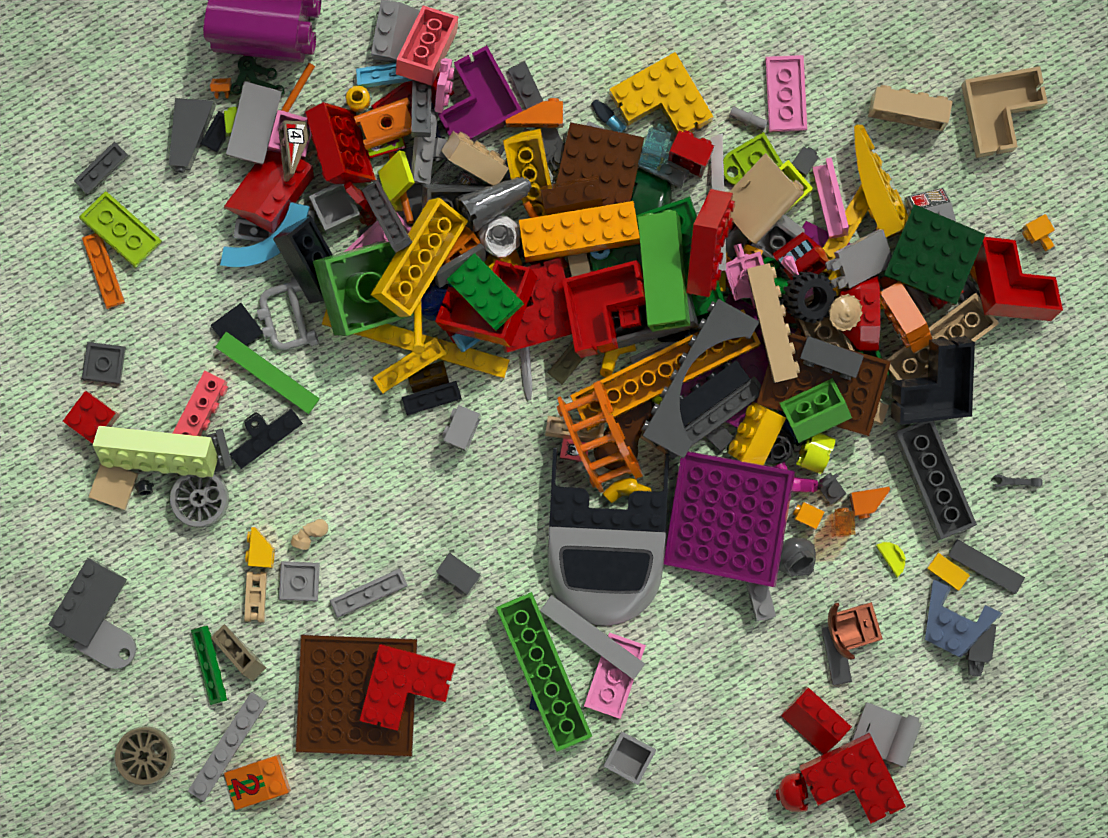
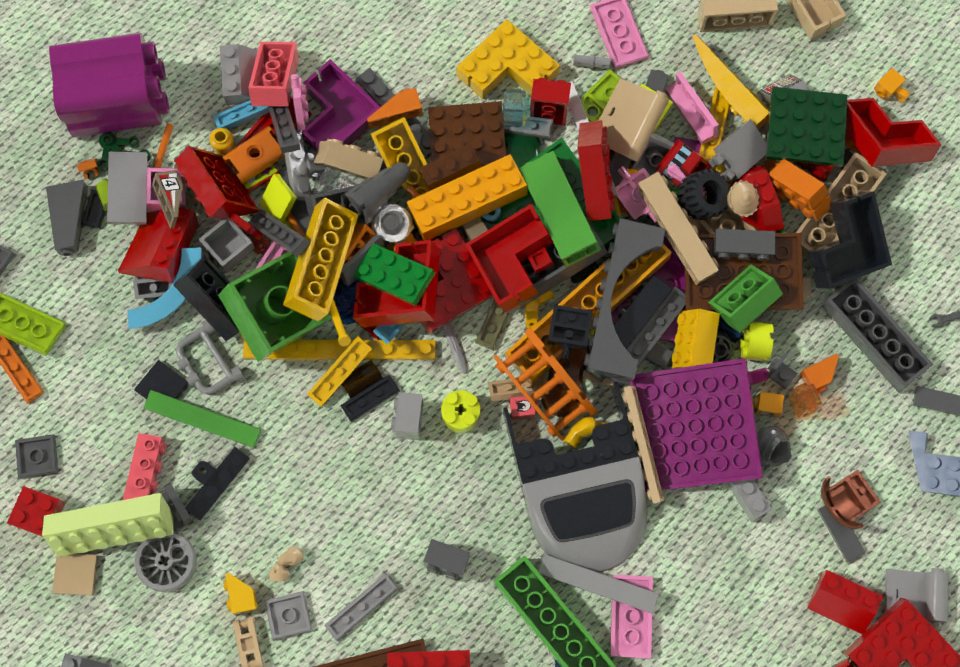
camera: 20 degrees left, 10 degrees down
(144, 487) = (107, 567): black plate -> none
(522, 431) = (451, 406): none -> neon yellow brick
(607, 116) = (460, 94): black piece -> none
(638, 391) = (570, 328): none -> black plate
(674, 528) = (645, 453): none -> tan plate
(893, 556) = (862, 420): neon yellow tile -> none
(948, 571) = (919, 419): yellow tile -> none

